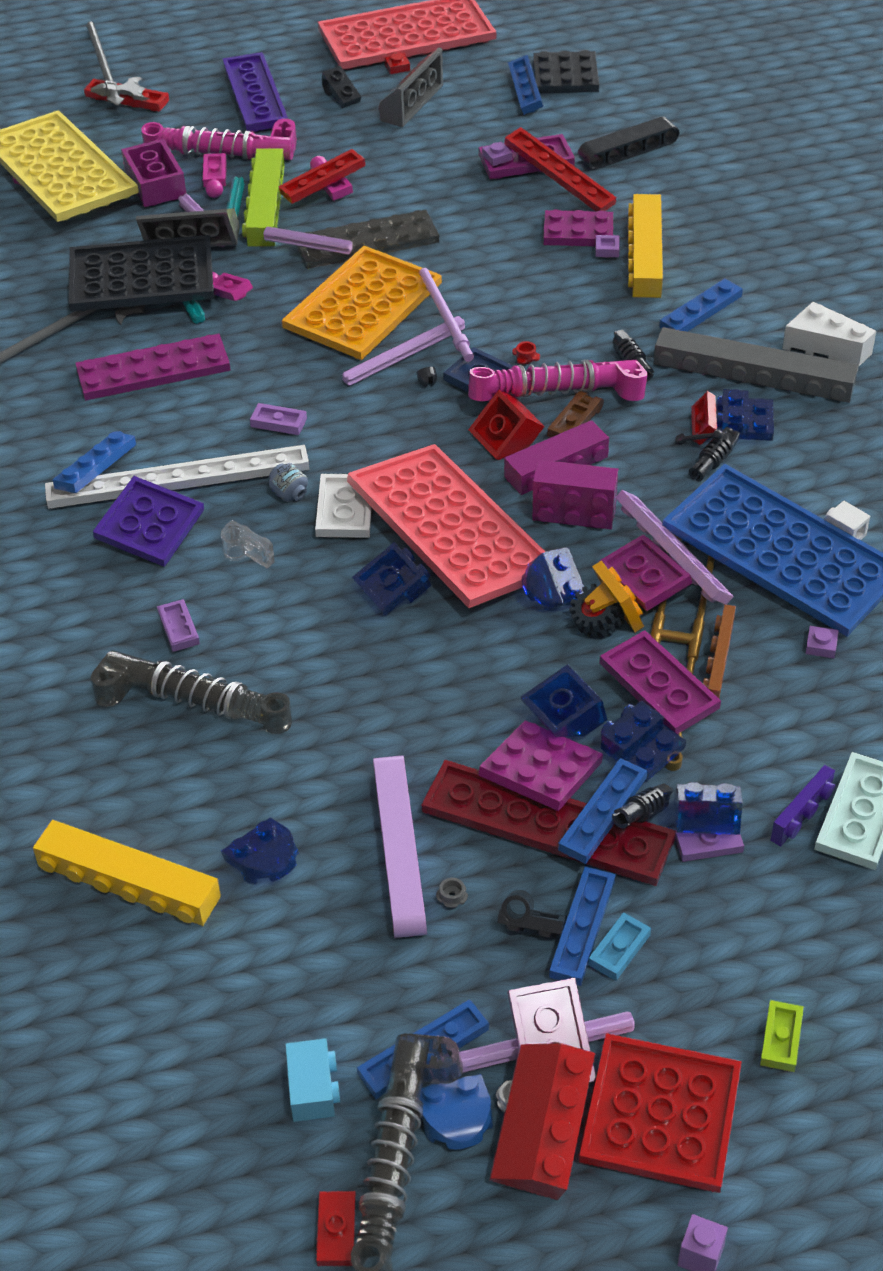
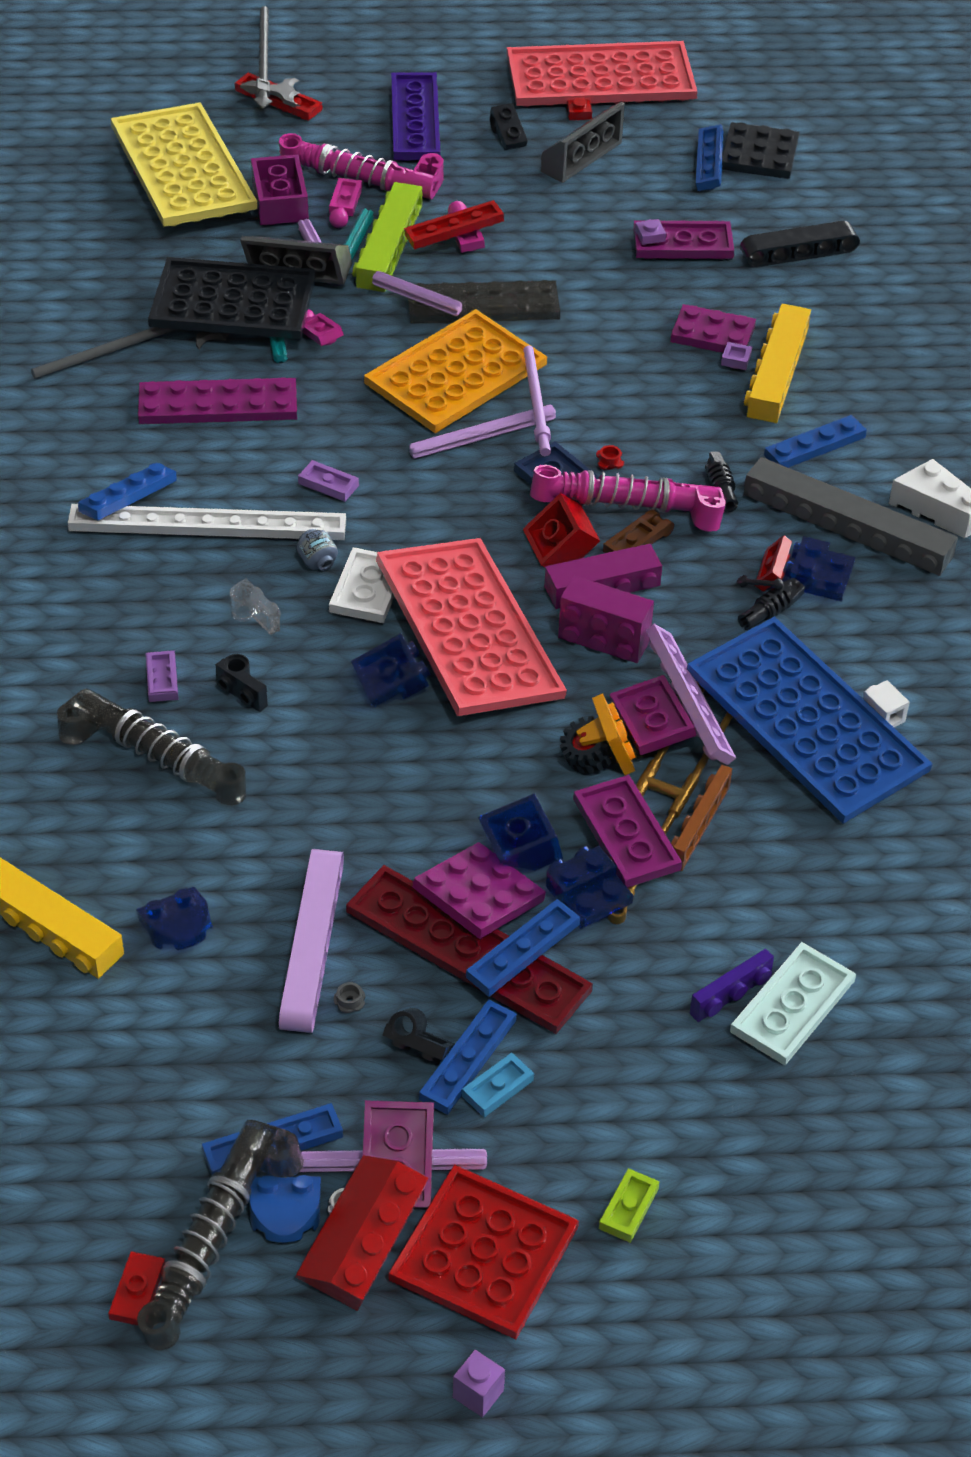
camera: 10 degrees right, 0 degrees up
(148, 521) = (163, 563): dark purple plate -> none
(247, 613) = (235, 677): none -> black plate
(310, 1080) = (154, 1146): medium azure brick -> none
(427, 375) = (498, 463): black hinge -> none
(552, 579) = (553, 703): clear blue slope -> none
(560, 170) = (712, 262): red plate -> none
(643, 805) = (567, 951): black hinge -> none
(700, 846) = (625, 1001): medium lavender plate -> none
(708, 808) = (629, 968): clear blue slope -> none
(822, 642) = (815, 823): medium lavender plate -> none

